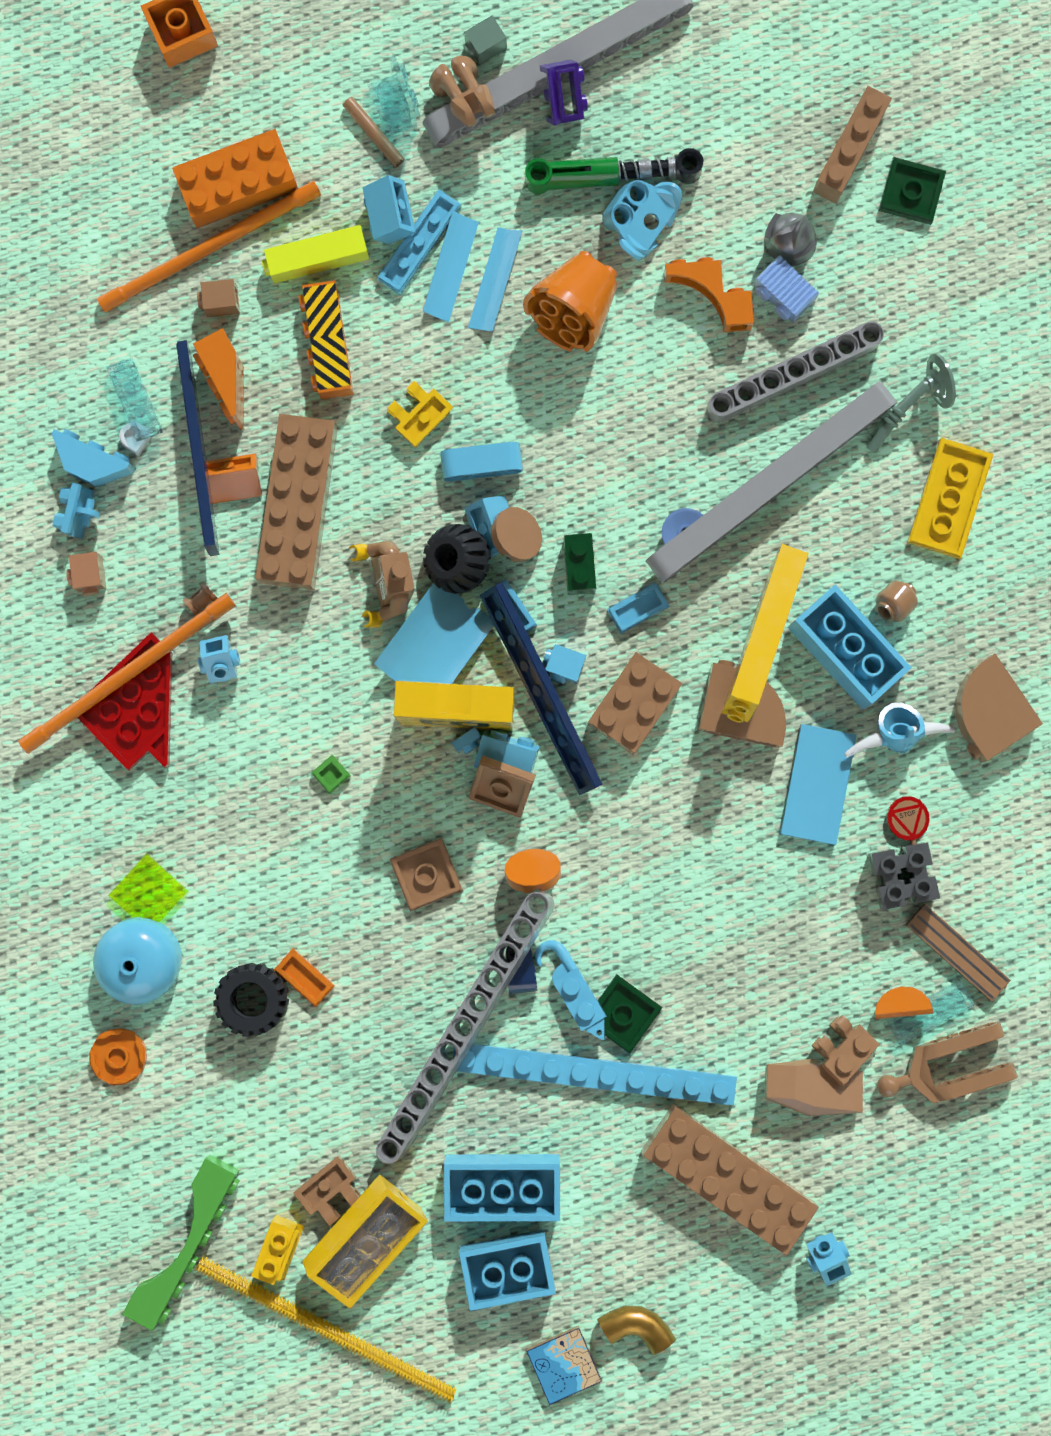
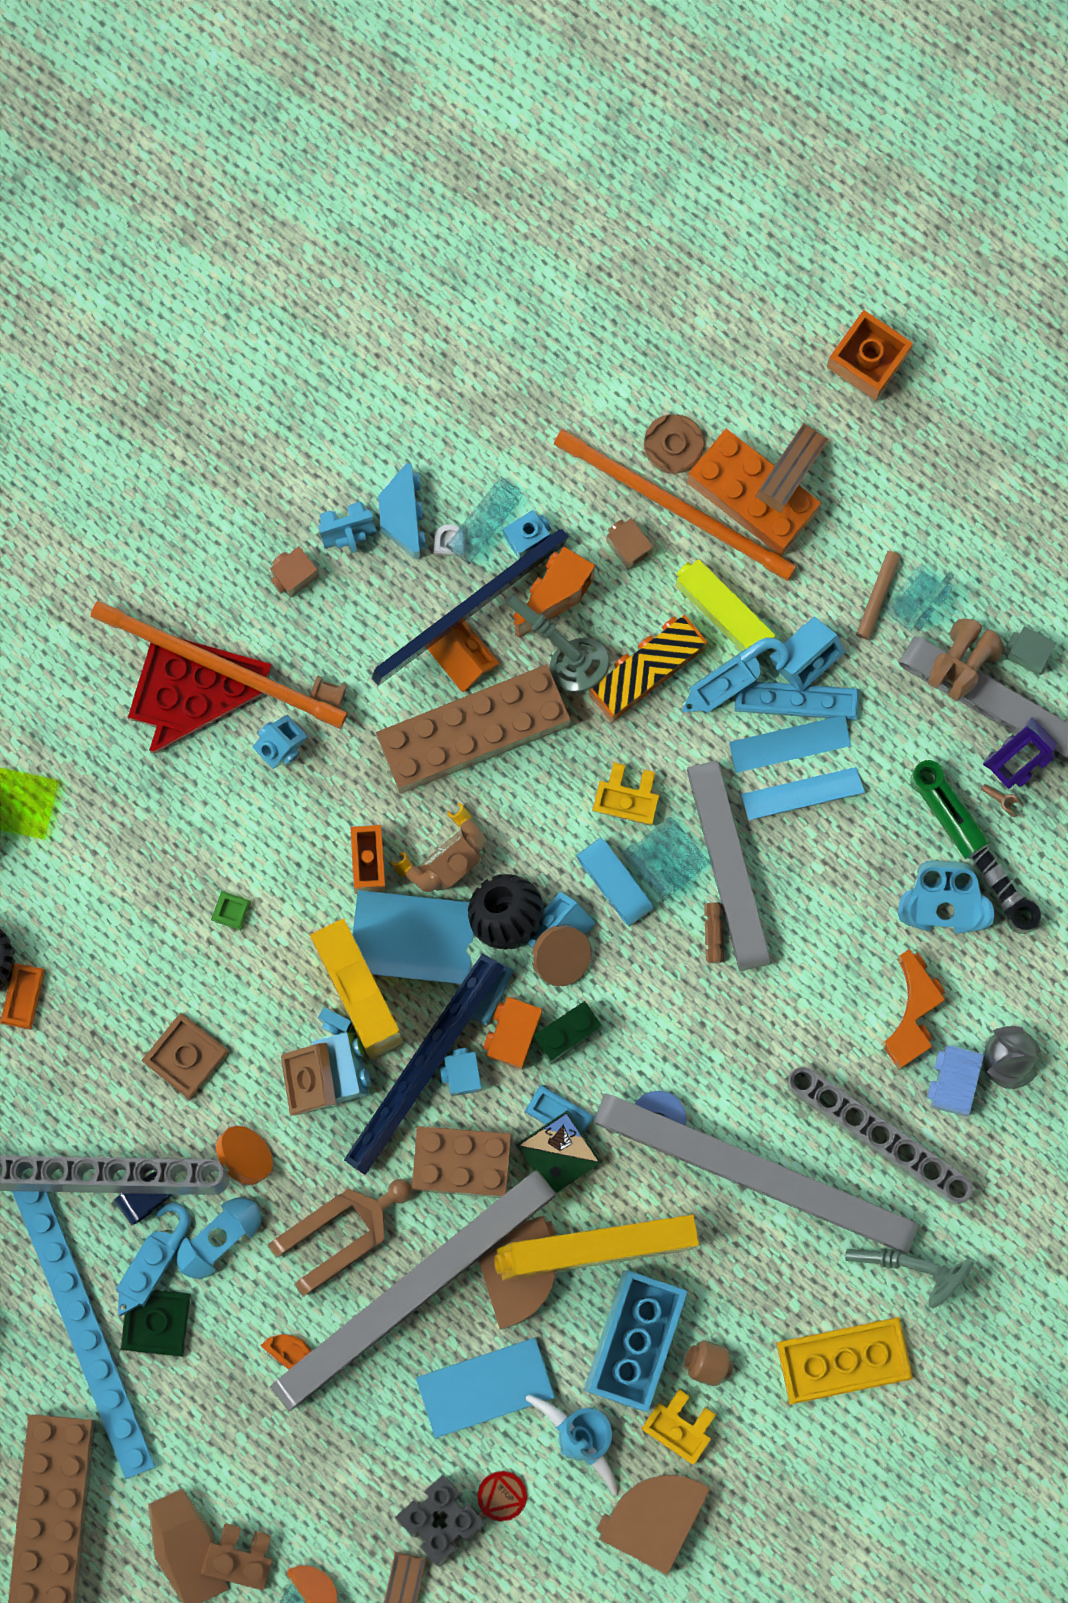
camera: 60 degrees right, 5 degrees down
(160, 228) = (671, 454): none -> medium nougat tile
(164, 373) = (526, 533): none -> medium azure brick
(234, 134) = (791, 468): none -> medium nougat tile
(284, 388) = (572, 649): none -> sand green dish
(352, 642) = (367, 858): none -> orange brick
(373, 277) = (732, 676): none -> medium azure plate
(486, 412) = (666, 858): none -> clear light blue bracket
(519, 367) = (728, 865): none -> light grey beam
(555, 606) = (513, 1032): none -> orange brick
(565, 408) = (714, 932): none -> medium nougat axle
(573, 302) = (819, 881): orange cone -> none
(580, 904) = (197, 1255): none -> medium azure piece
(590, 128) = (1006, 801): none -> medium nougat hand
(634, 797) = (370, 1212): none -> medium nougat piece
(669, 624) = (560, 1151): none -> tile
(709, 919) = (286, 1349): none -> orange tile
(716, 796) = (413, 1290): none -> light grey beam
(935, 656) = (677, 1433): none -> yellow plate

